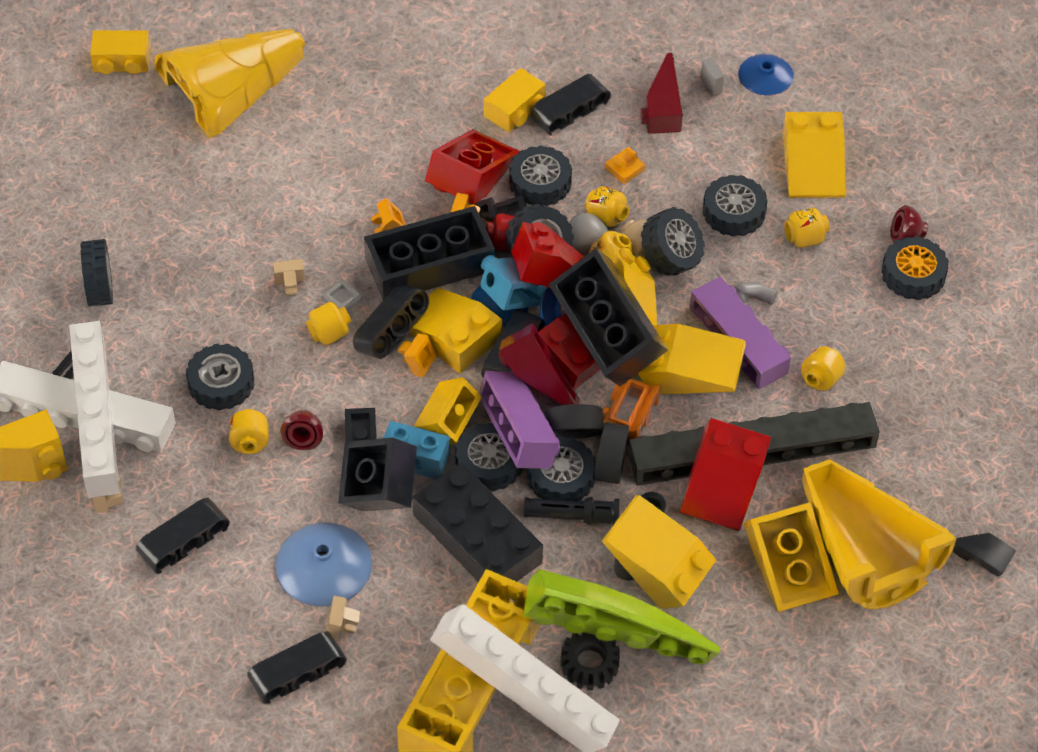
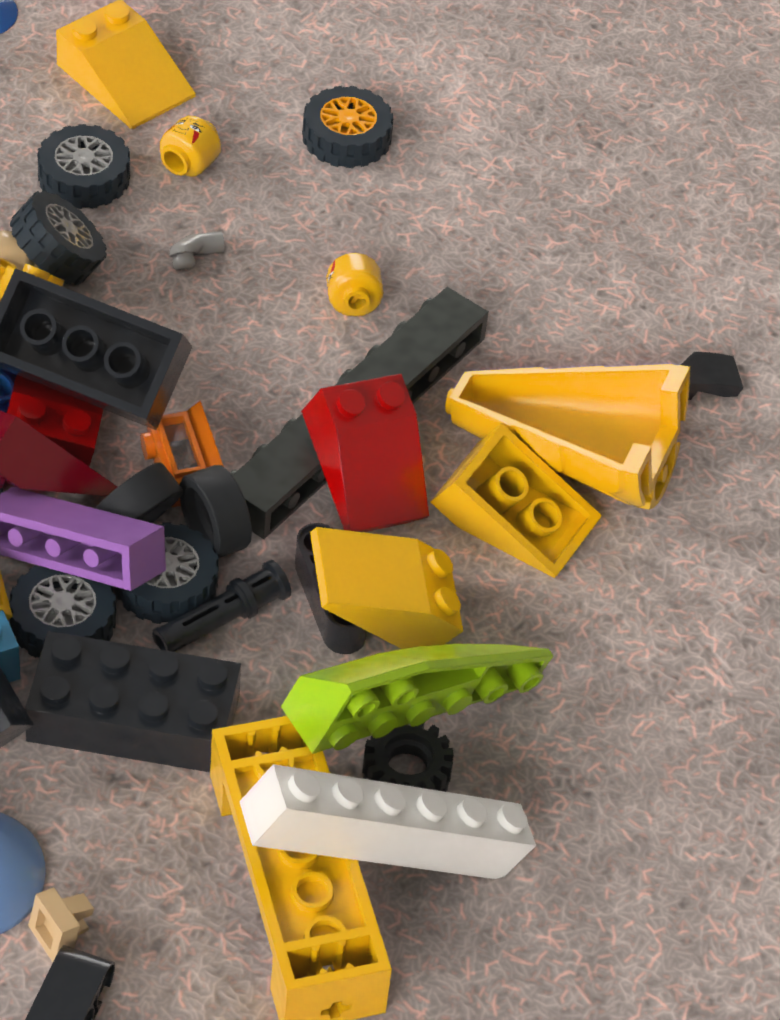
camera: 45 degrees left, 5 degrees down
(695, 361) = (228, 353): yellow slope -> none
(725, 314) = (224, 298): medium lavender brick -> none
(907, 223) = (295, 85): dark red brick -> none

